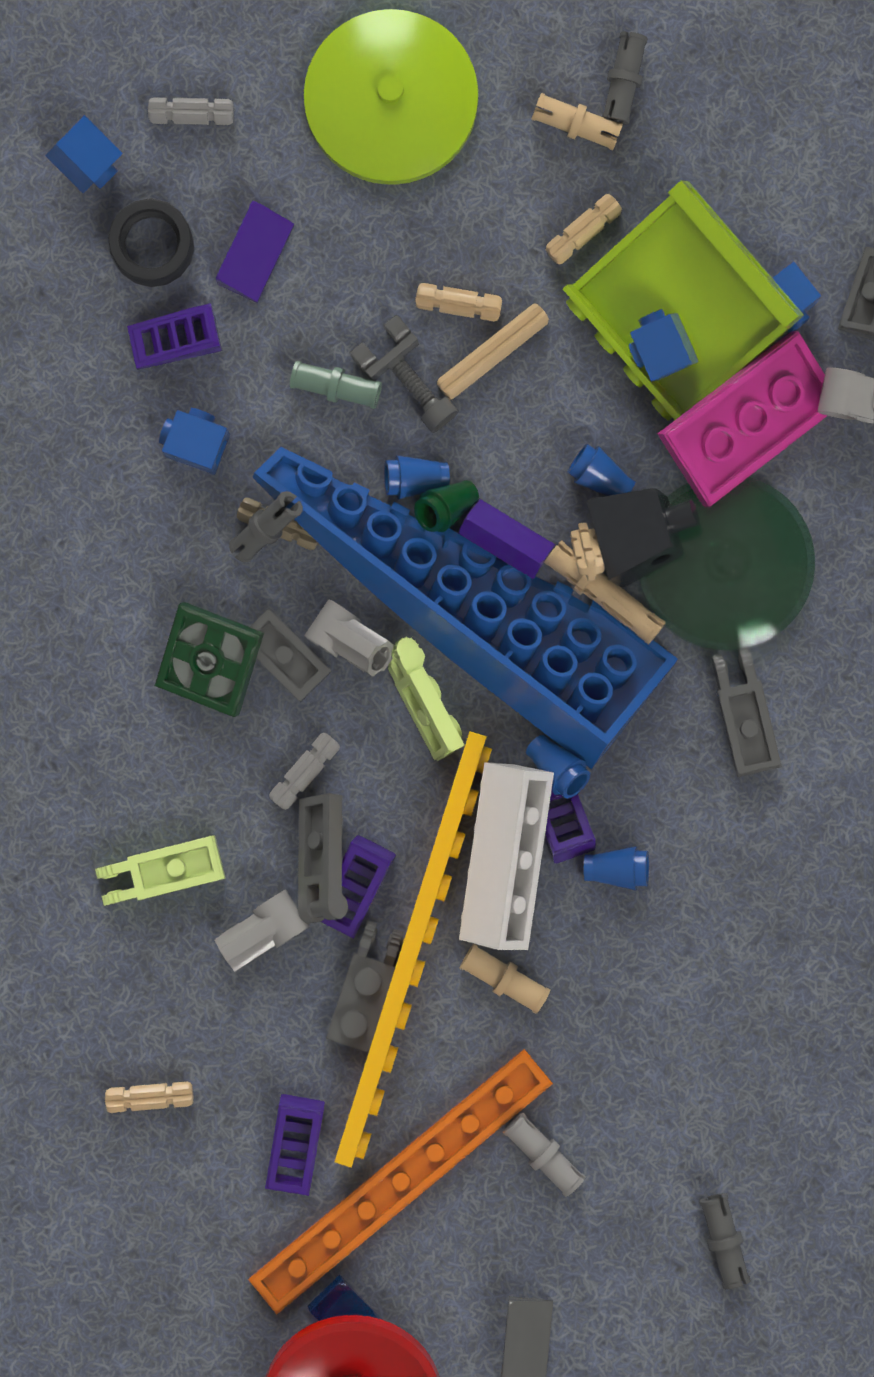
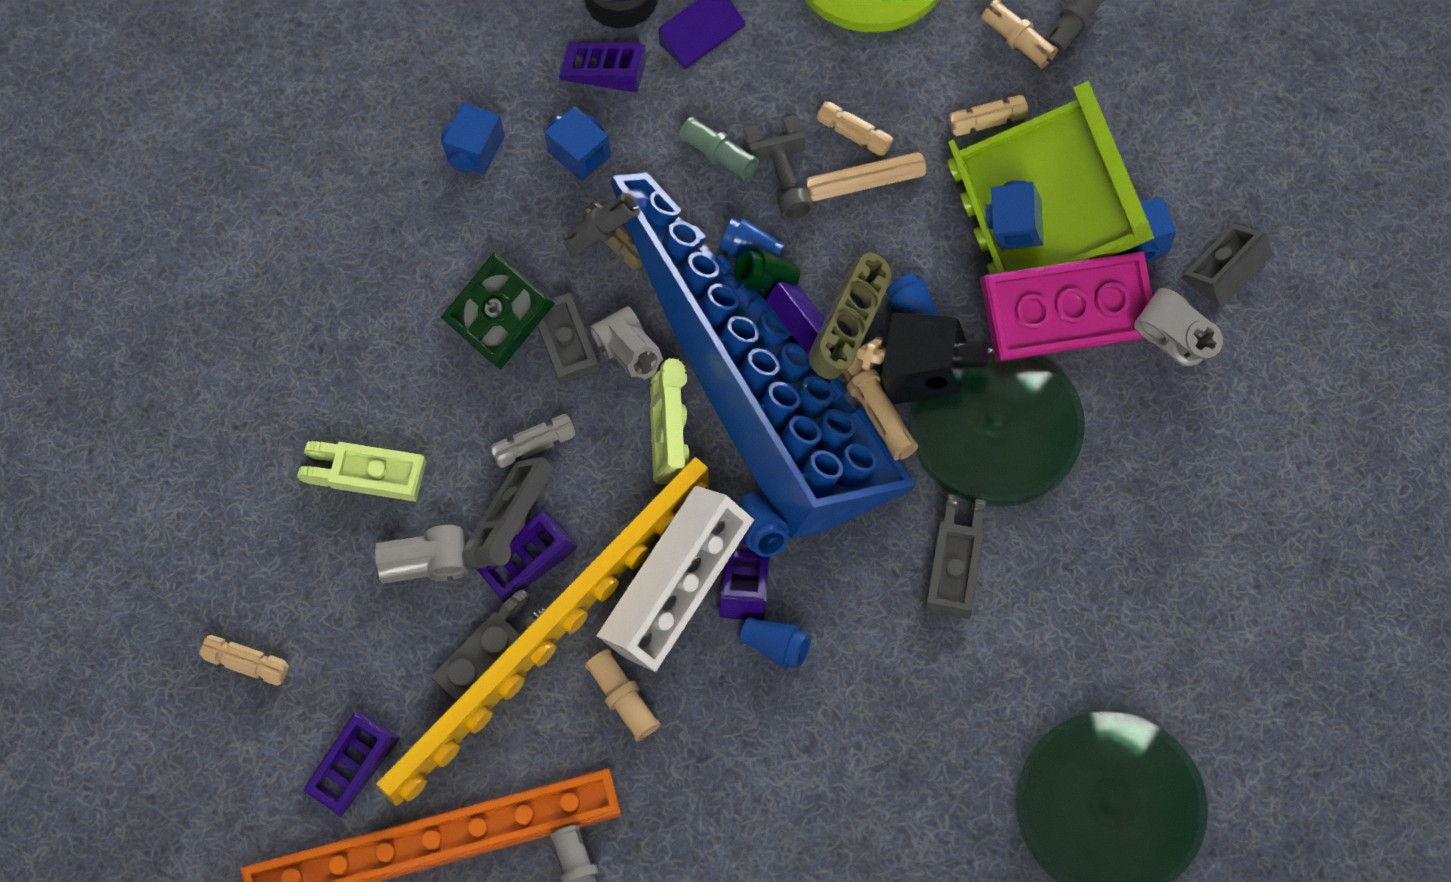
camera: 20 degrees right, 20 degrees down
(88, 484) = (472, 139): none -> blue brick
(545, 519) = (851, 315): none -> olive beam

